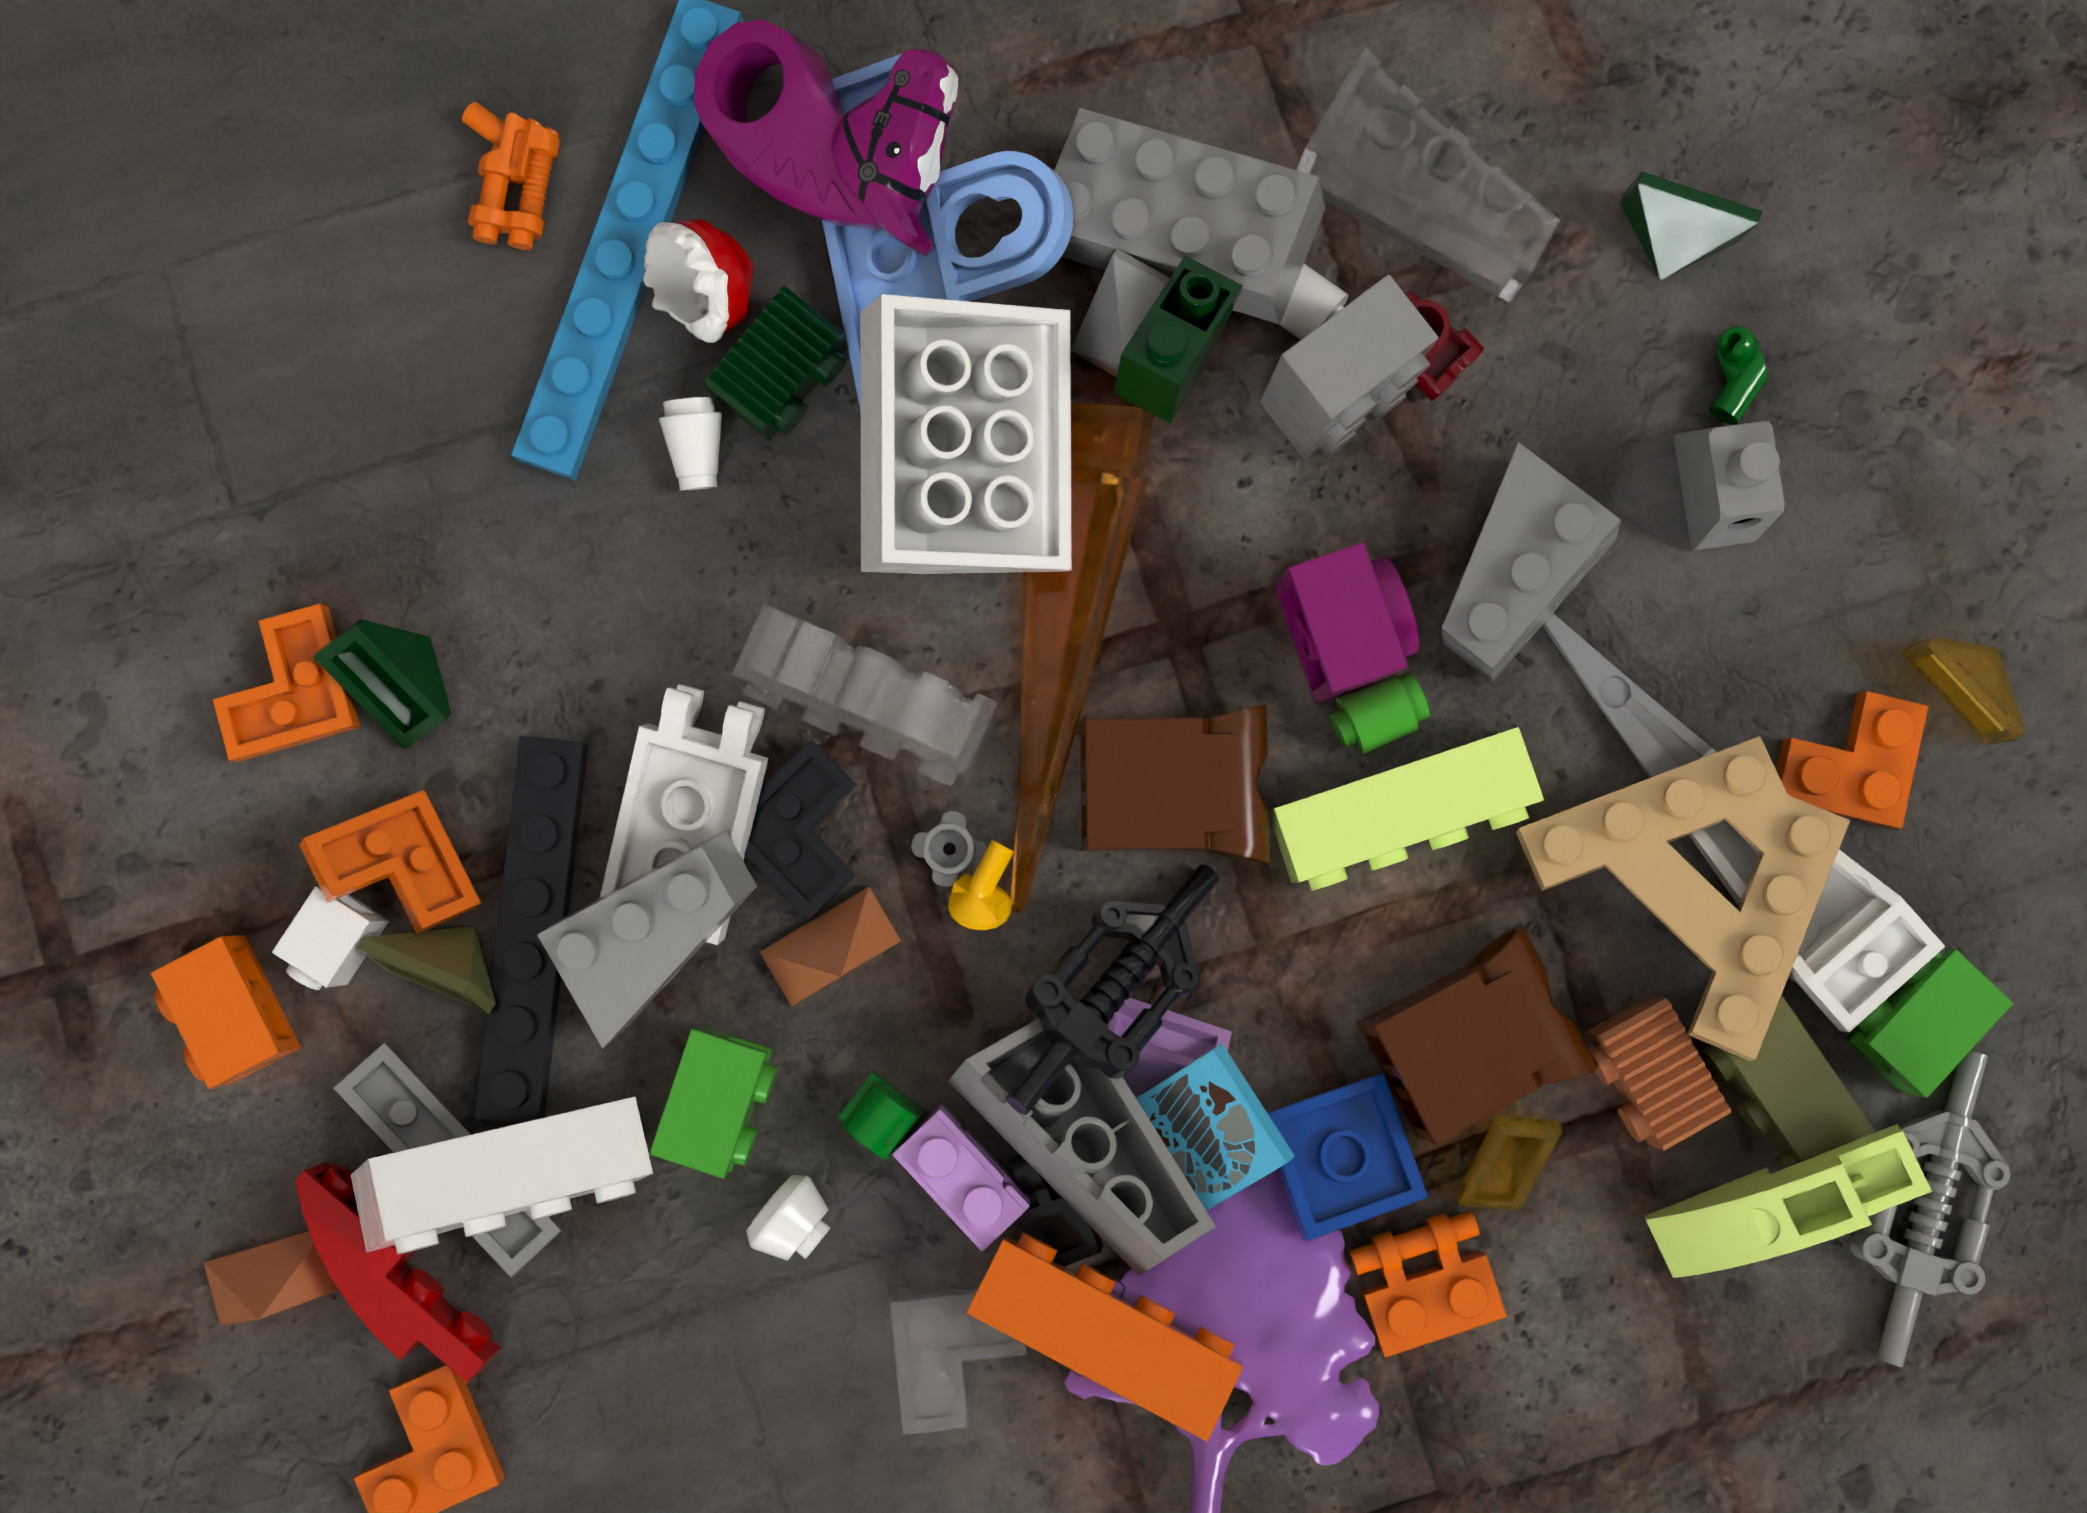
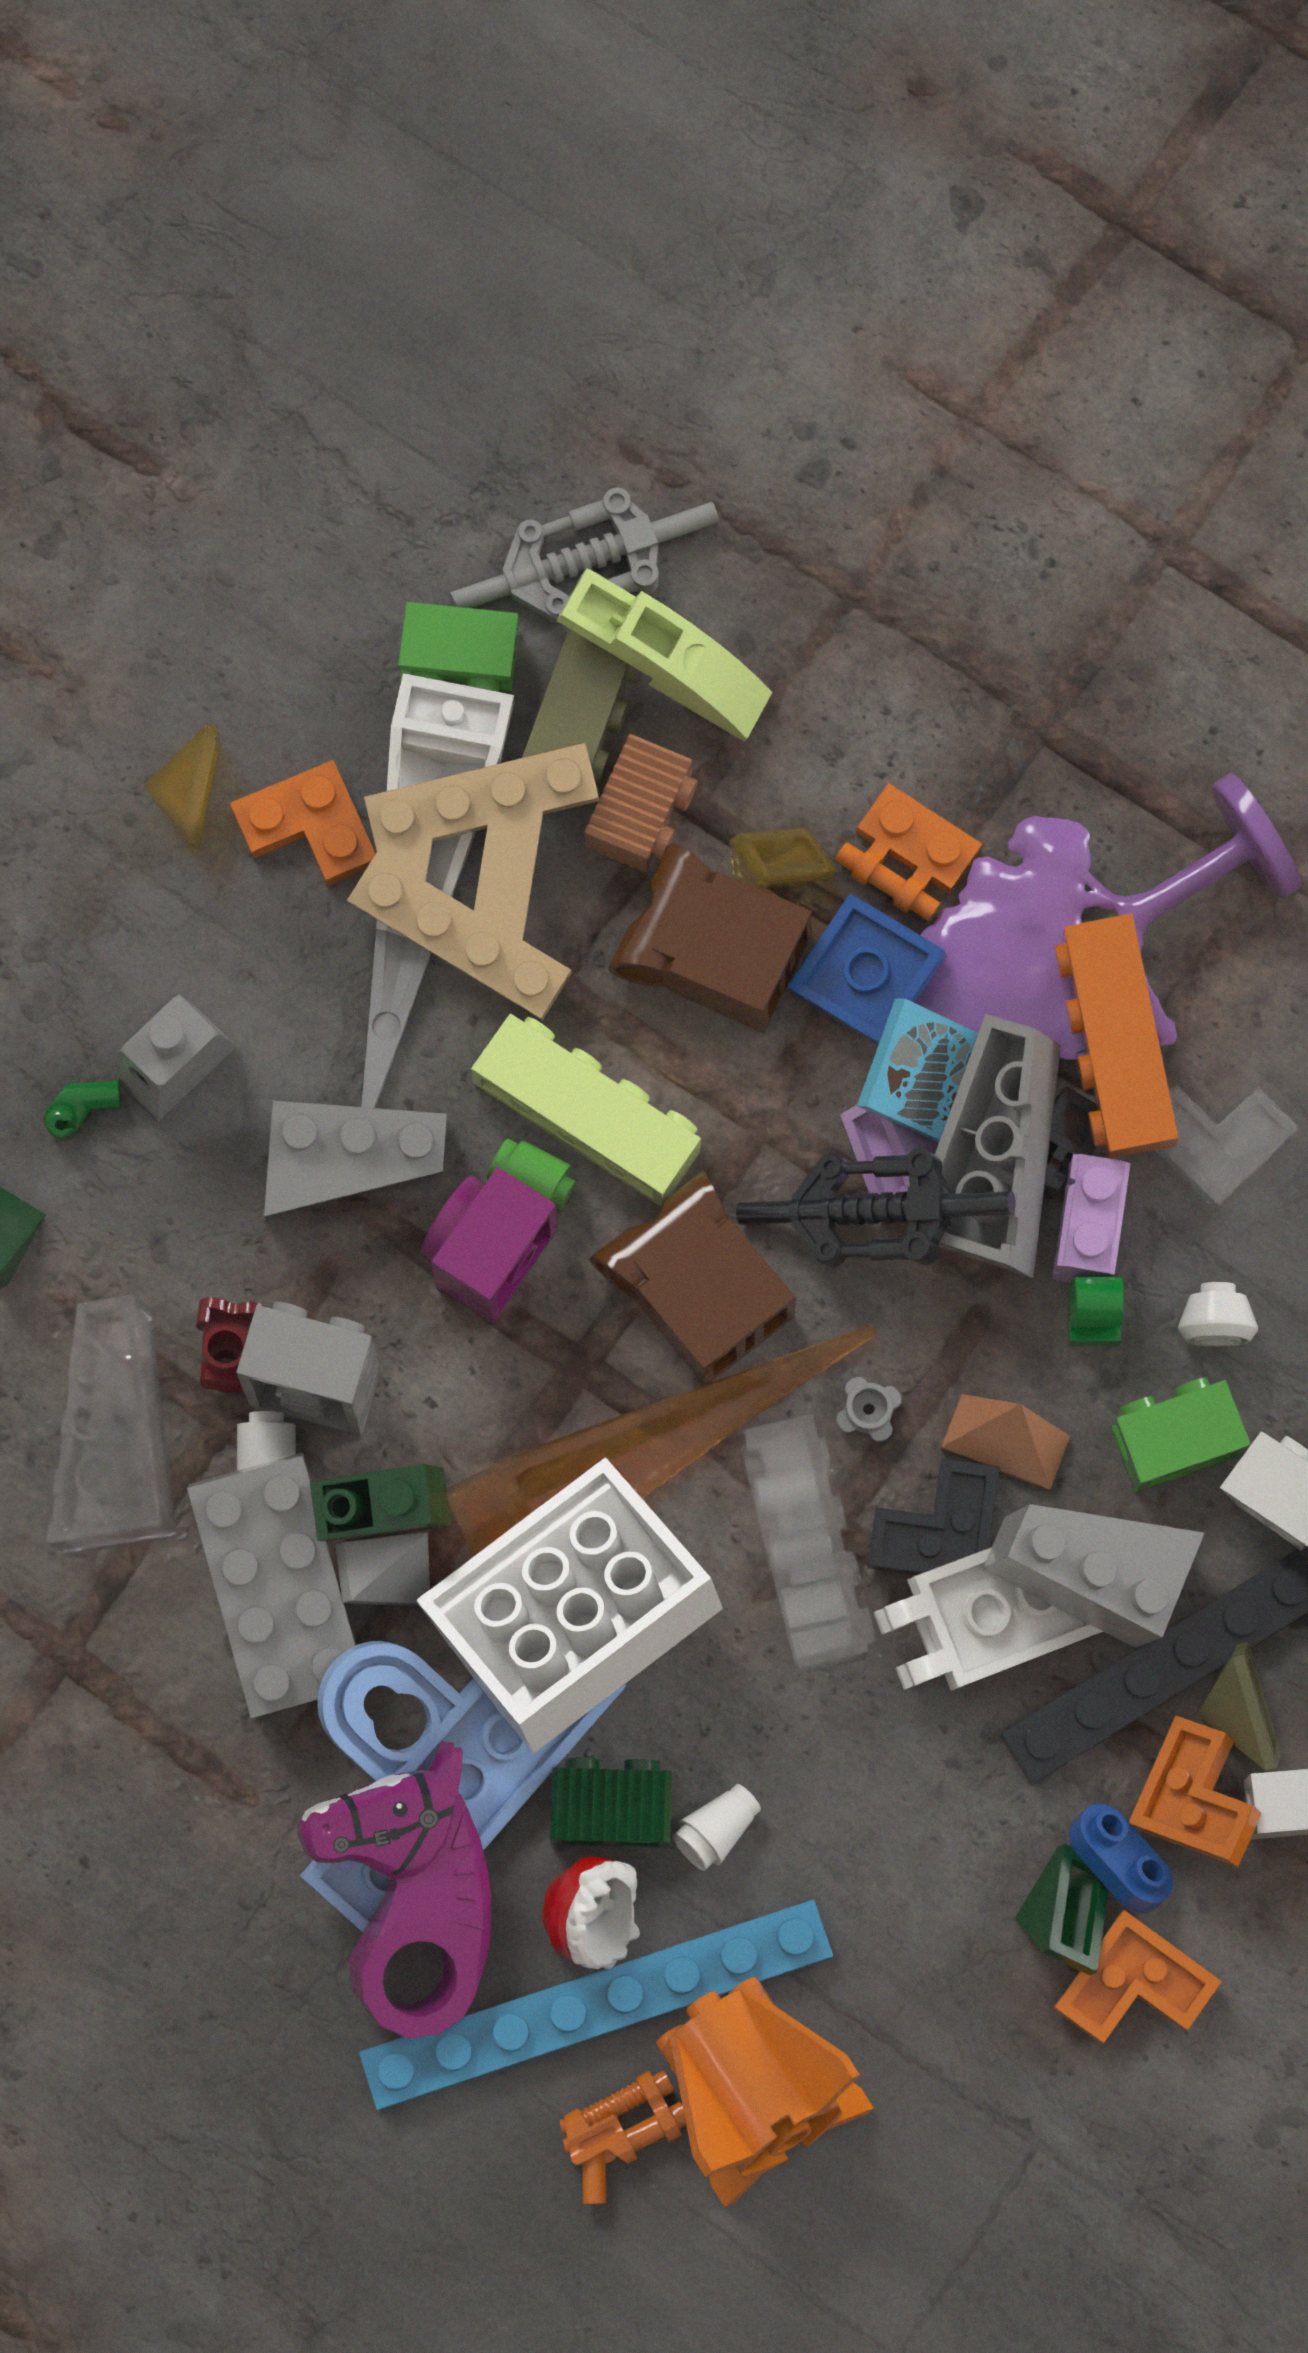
camera: 125 degrees left, 10 degrees down
(395, 759) = (1121, 1858): none -> blue plate
(443, 289) = (755, 2085): none -> orange brick
(977, 899) = (888, 1355): yellow plate -> none

